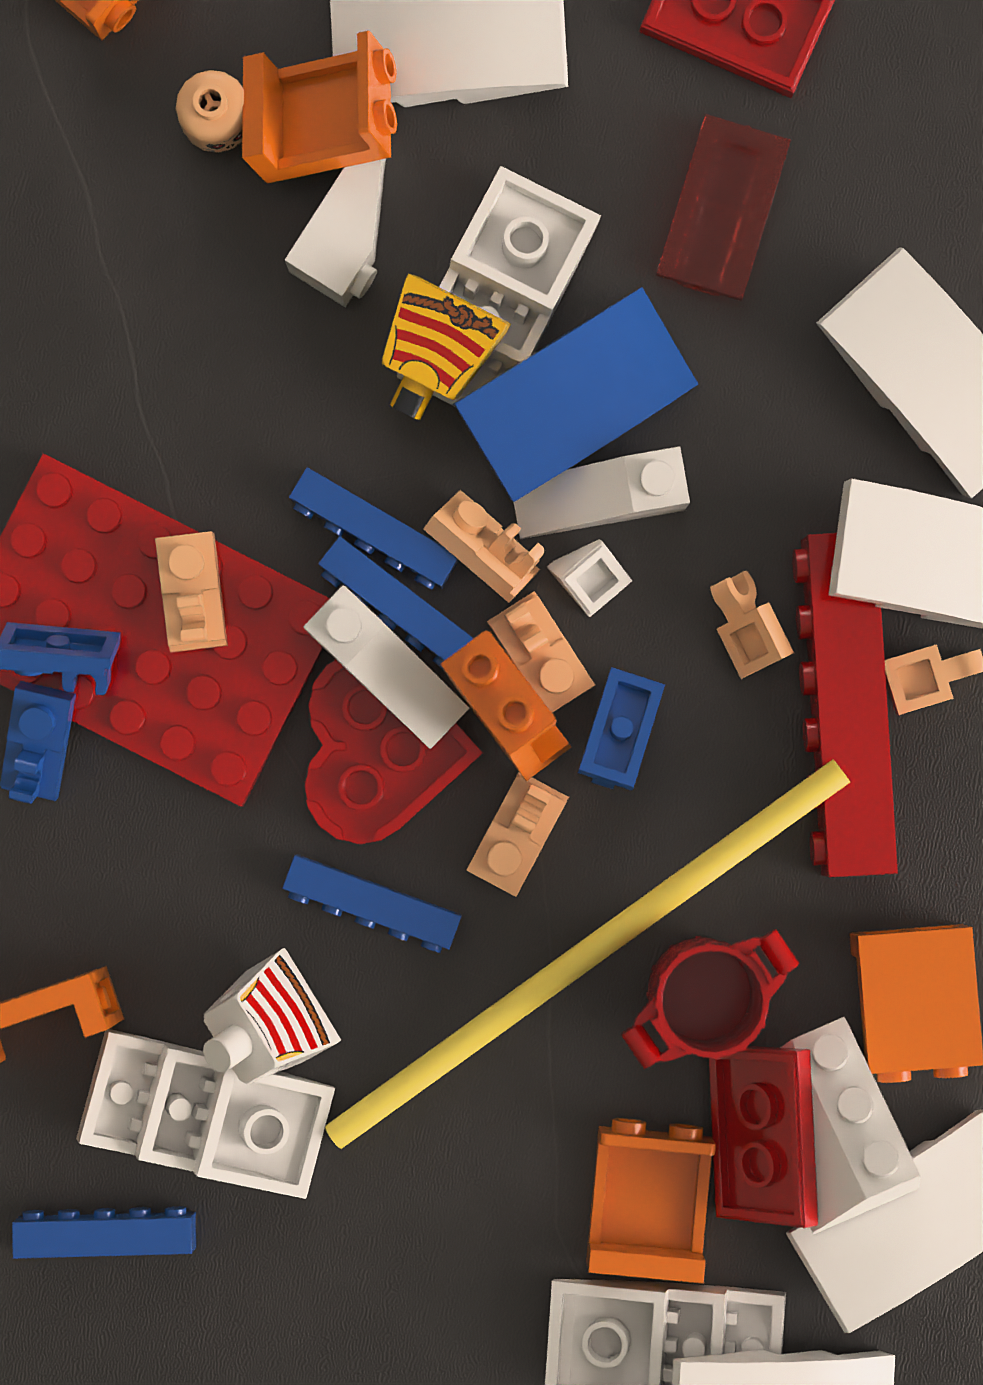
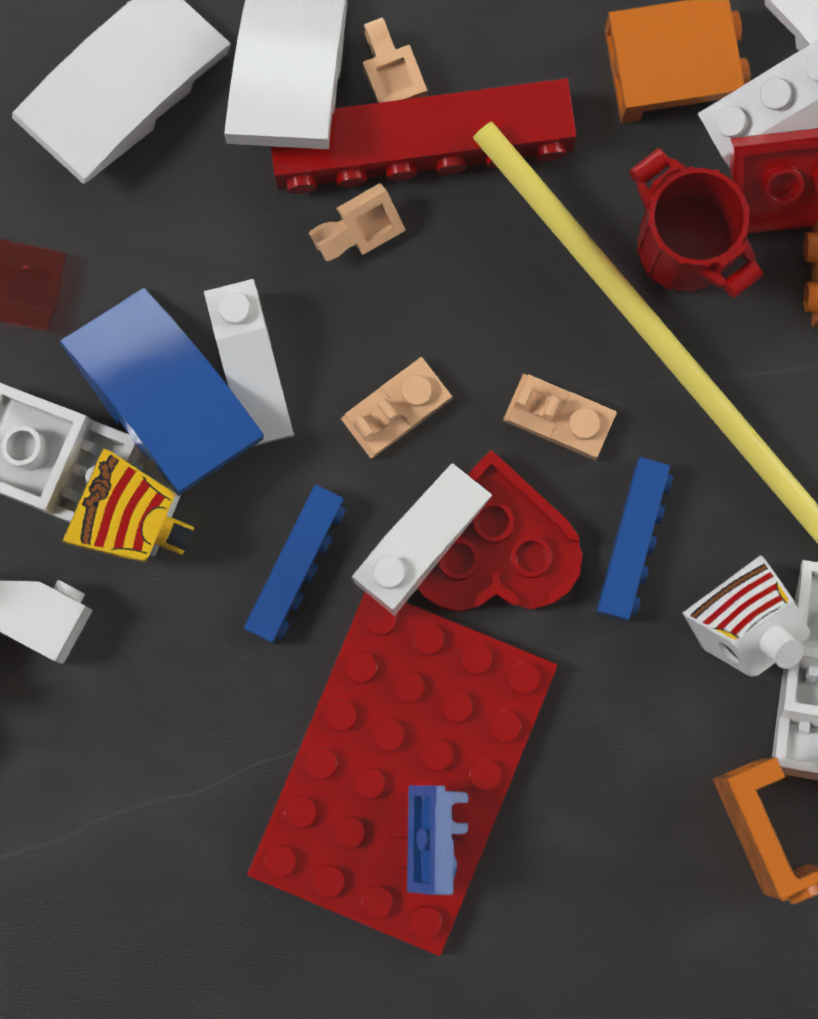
camera: 90 degrees left, 5 degrees down
(37, 742) = (515, 856): blue plate -> none
(191, 591) = (366, 723): light nougat plate -> none
(393, 600) = (363, 535): blue piece -> none
(484, 546) = (305, 462): light nougat plate -> none
(506, 704) = (448, 424): orange panel -> none
(590, 576) = (323, 369): white slope -> none
(621, 729) = (460, 328): blue plate -> none

